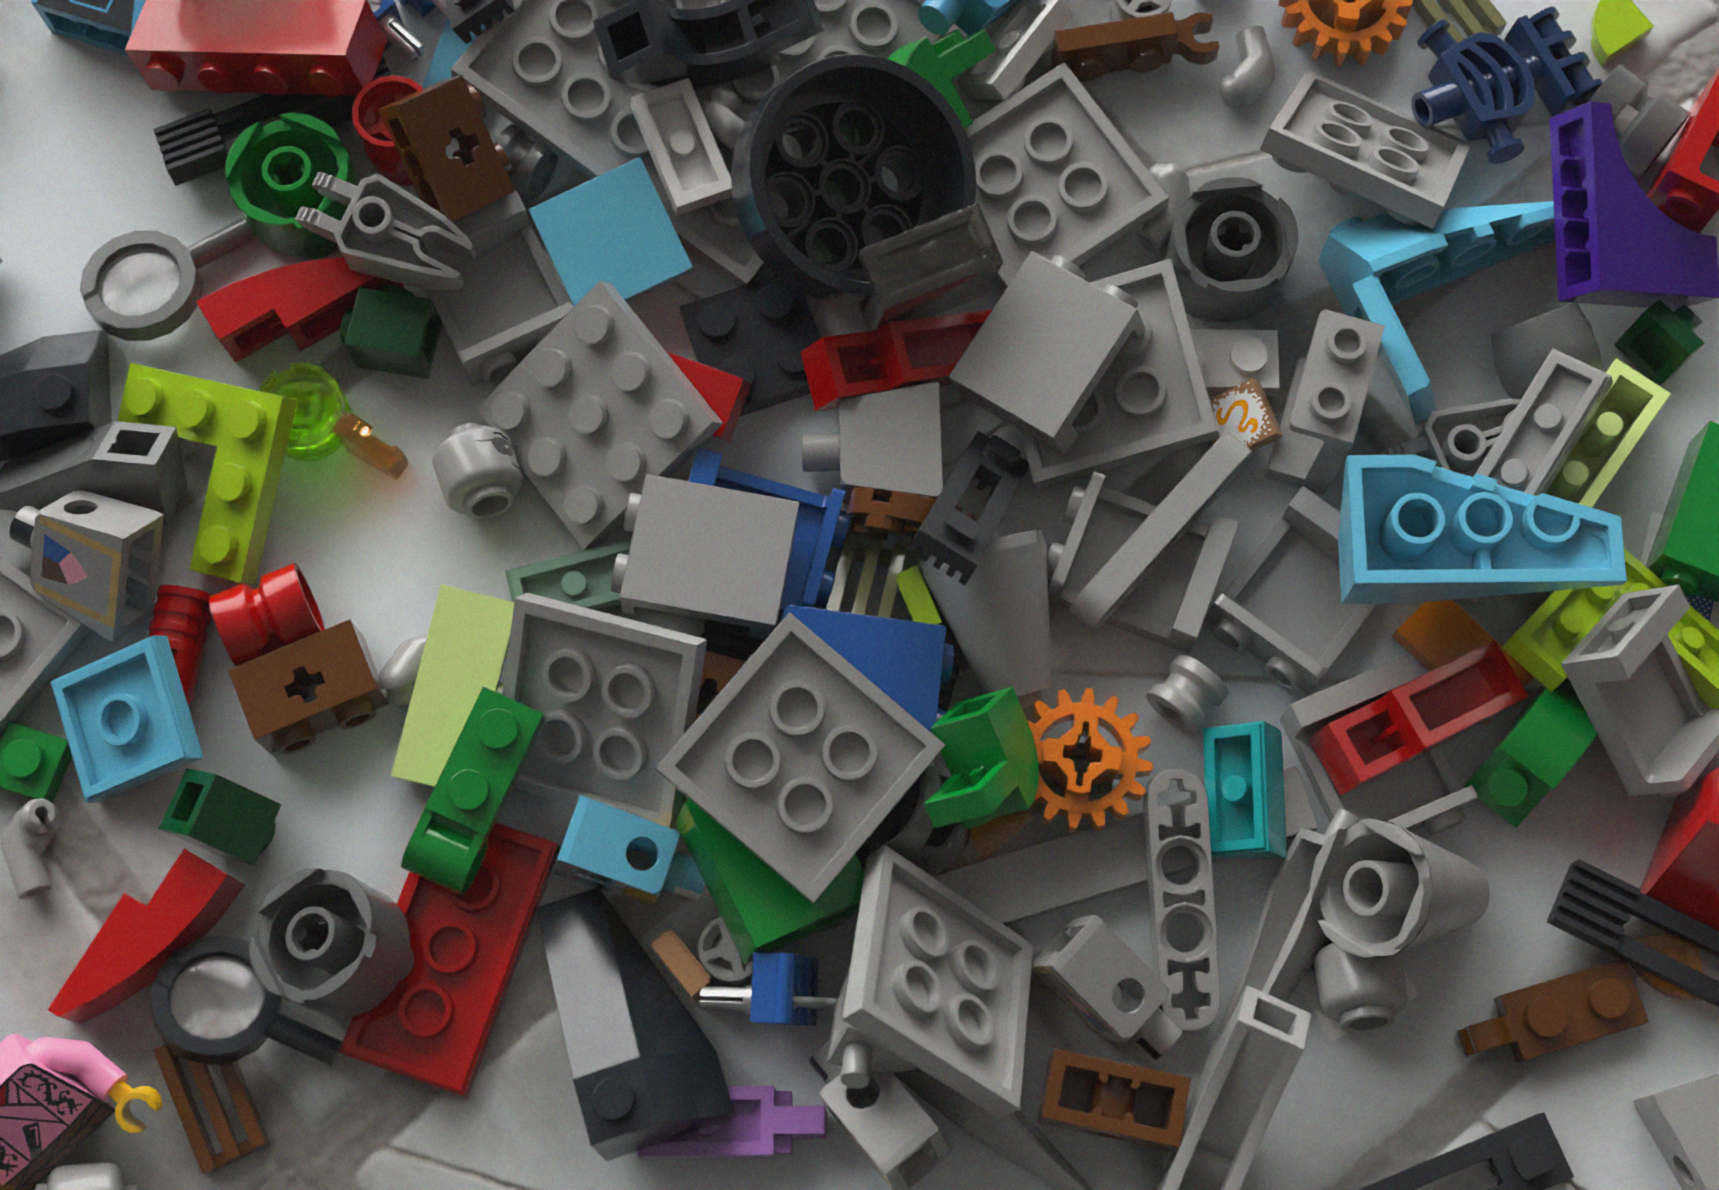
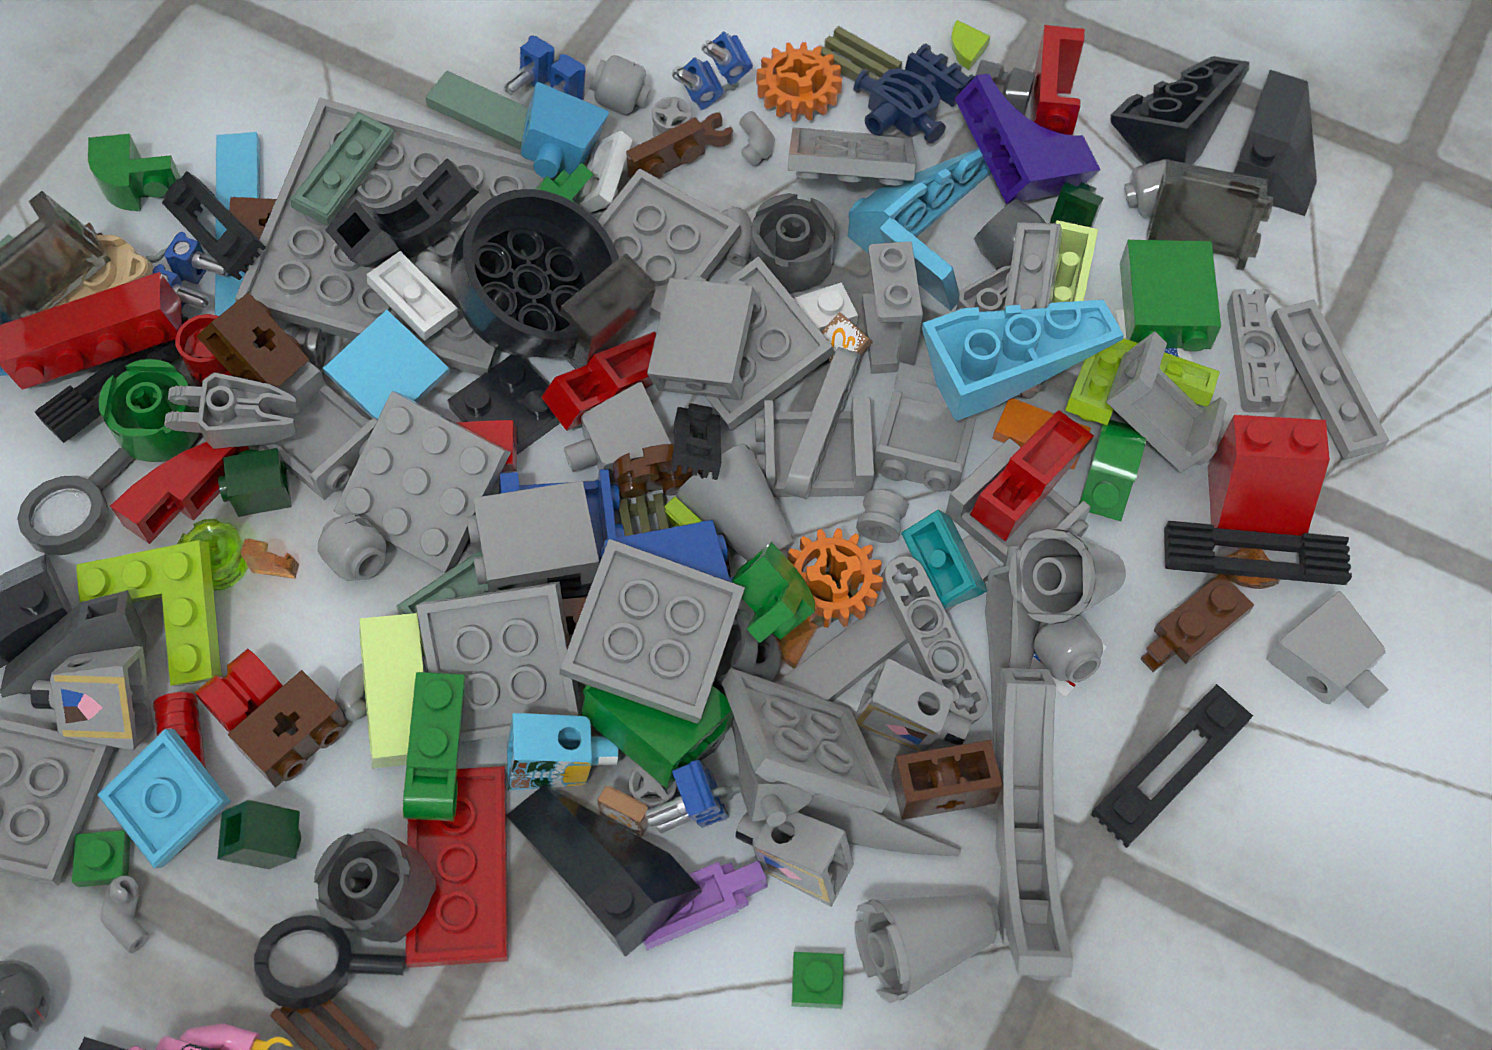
camera: 25 degrees left, 10 degrees down
(143, 936) = (233, 938): red slope -> none

